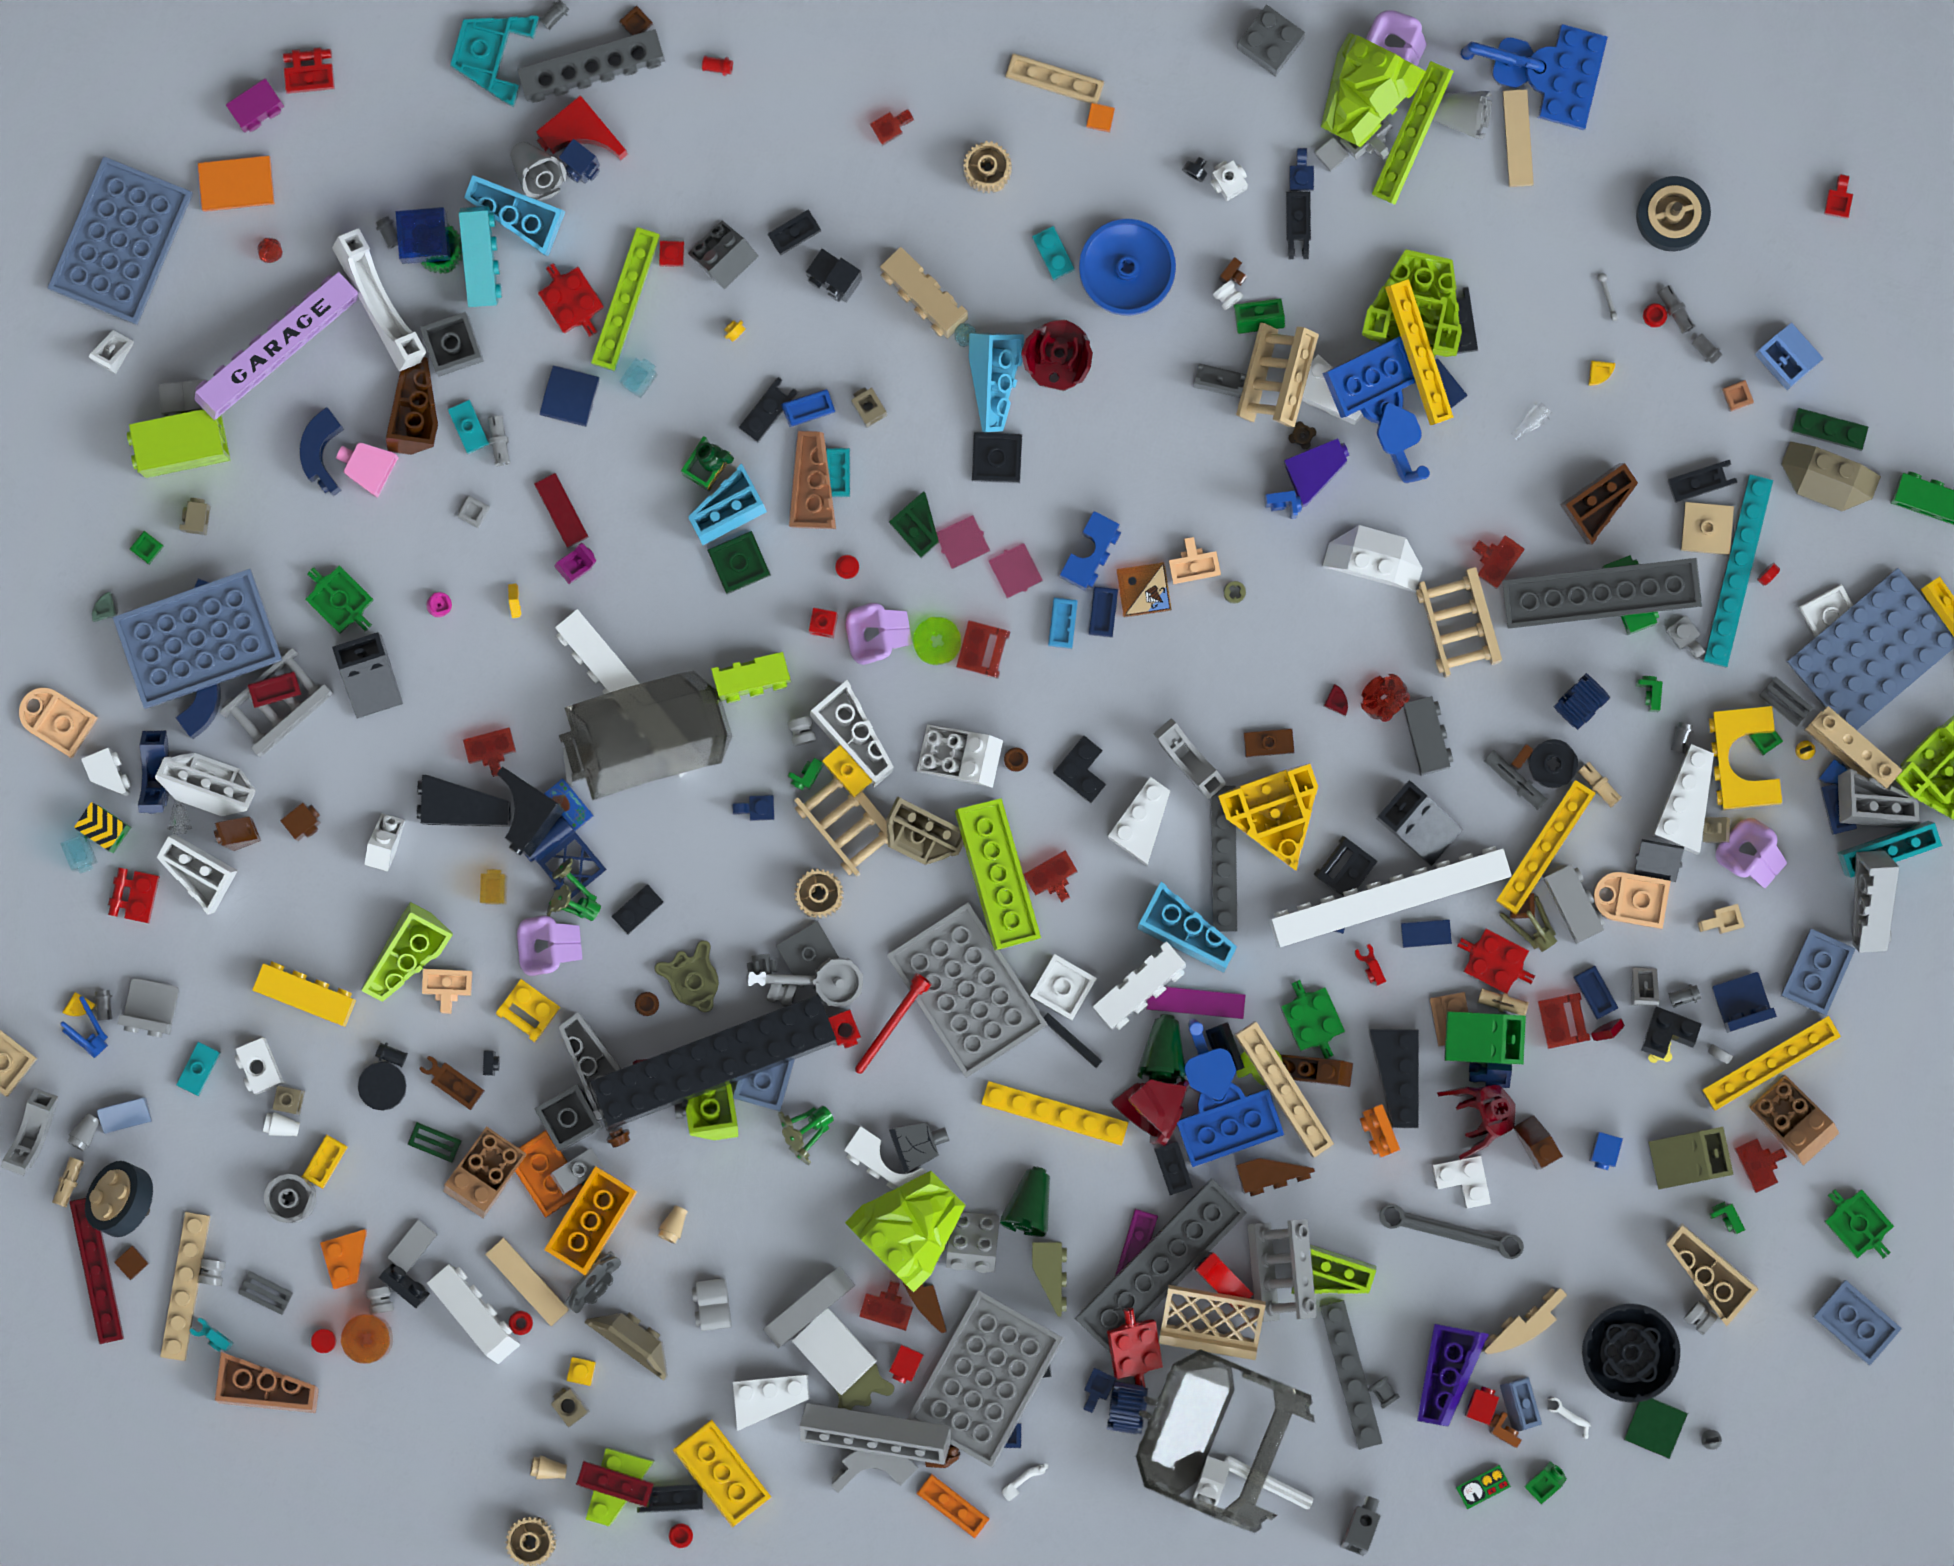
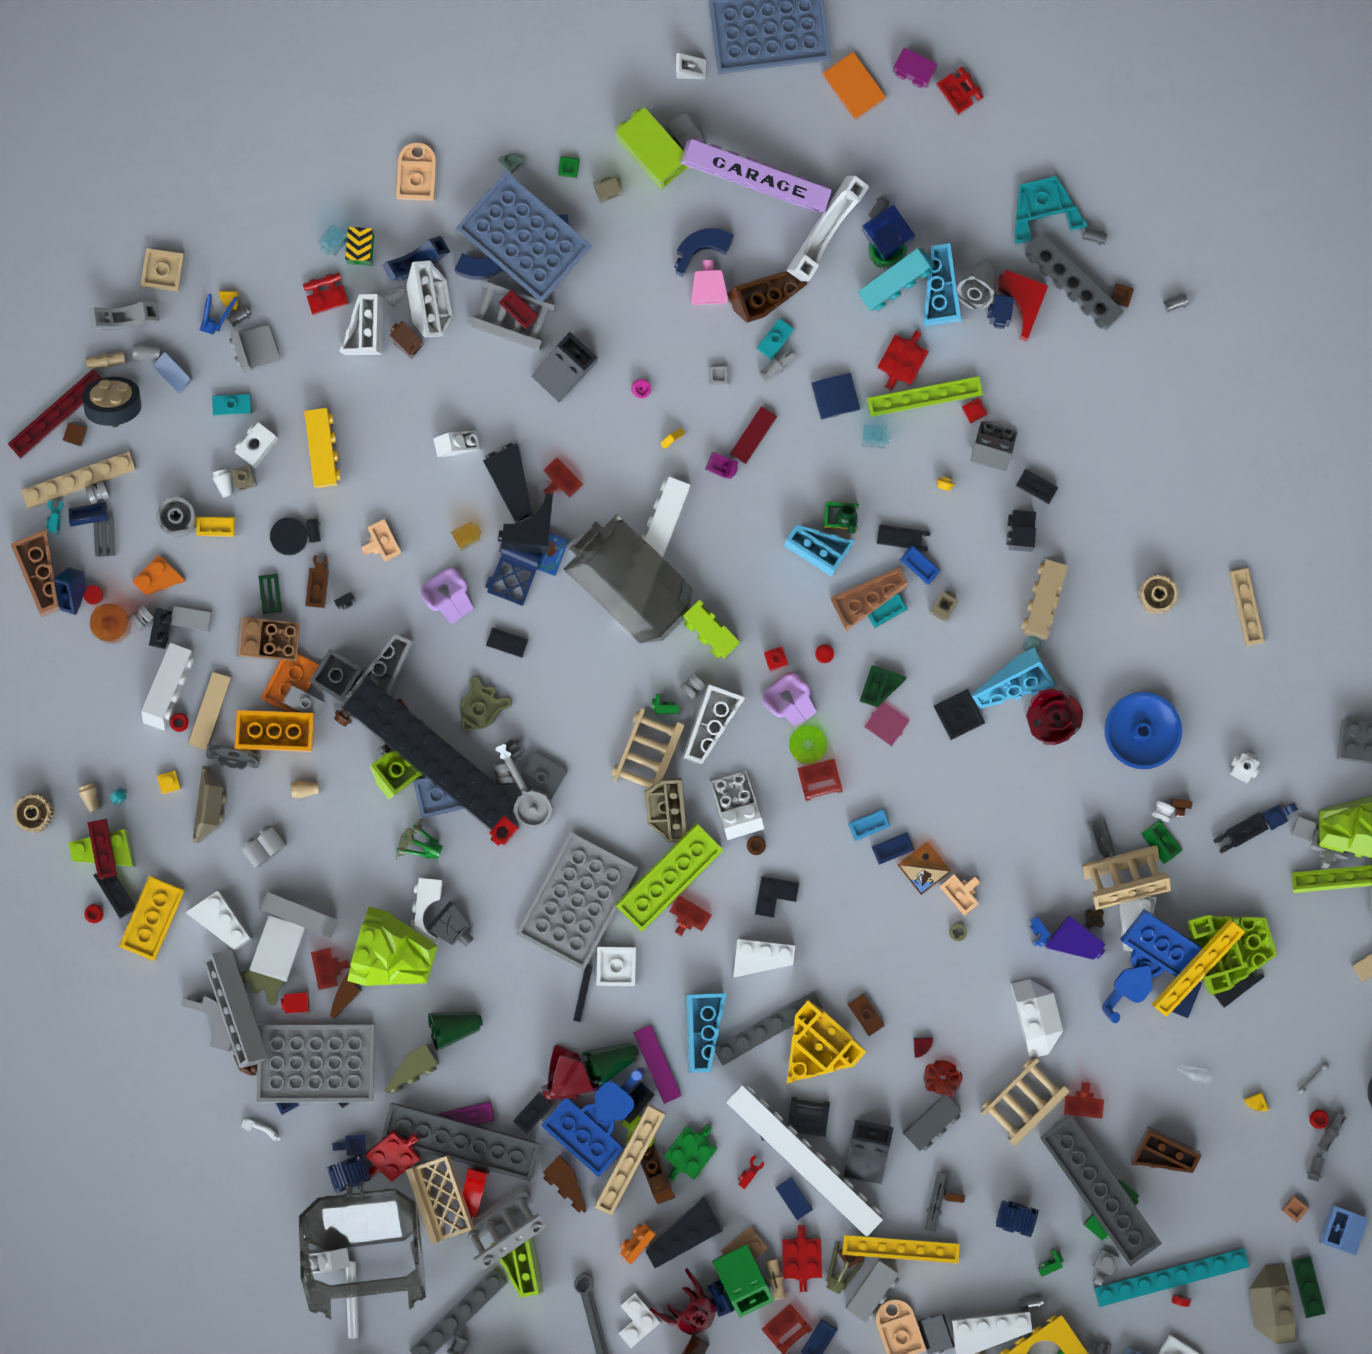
camera: 55 degrees right, 0 degrees up
(105, 771) = (399, 226): white slope -> none
(230, 1296) = (88, 514): none -> dark blue tile
(269, 250) = (820, 134): clear red tile -> none
(302, 821) = (439, 379): reddish brown brick -> none
(304, 1362) = (70, 589): none -> dark blue slope
(339, 599) = (606, 318): green plate -> none
(412, 944) = (396, 501): lime wedge -> none
(452, 344) = (825, 295): dark grey brick -> none
(532, 1003) = (402, 607): yellow plate -> none
(565, 1435) = (118, 796): none -> teal plate
(579, 1411) = (139, 796): dark tan brick -> none
(584, 908) = (487, 606): plant -> none
(647, 1004) = (445, 685): reddish brown plate -> none
(717, 65) = (1123, 368): red pin -> none
(739, 562) = (785, 577): dark green tile -> none
(759, 808) = (623, 687): dark blue plate -> none
(807, 887) = (586, 772): tan brick -> none
(847, 771) = (681, 733): yellow plate -> none
(888, 127) = (1147, 510): clear red plate -> none
(918, 986) = (561, 865): red piece -> none
(953, 1506) = (216, 1090): orange tile -> none
(973, 1243) = (405, 1003): light grey bracket -> none
(1015, 570) = (887, 771): clear pink piece -> none
(1053, 253) = (1124, 673): teal plate -> none
(1054, 1113) = (525, 1009): yellow plate -> none
(1082, 570) = (947, 817): blue arch -> none
(1100, 117) = (1238, 653): orange tile -> none
(1140, 986) = (645, 1019): white wedge -> none
(1189, 759) = (823, 965): light grey arch -> none
(1195, 169) = (1238, 740): black tile -> none
(1564, 755) = (972, 1227): black plate -> none
(1599, 784) = (966, 1263): tan pin -> none
(1700, 482) = (1219, 1216): black hinge -> none
(1707, 528) = (1189, 1239): tan plate -> none

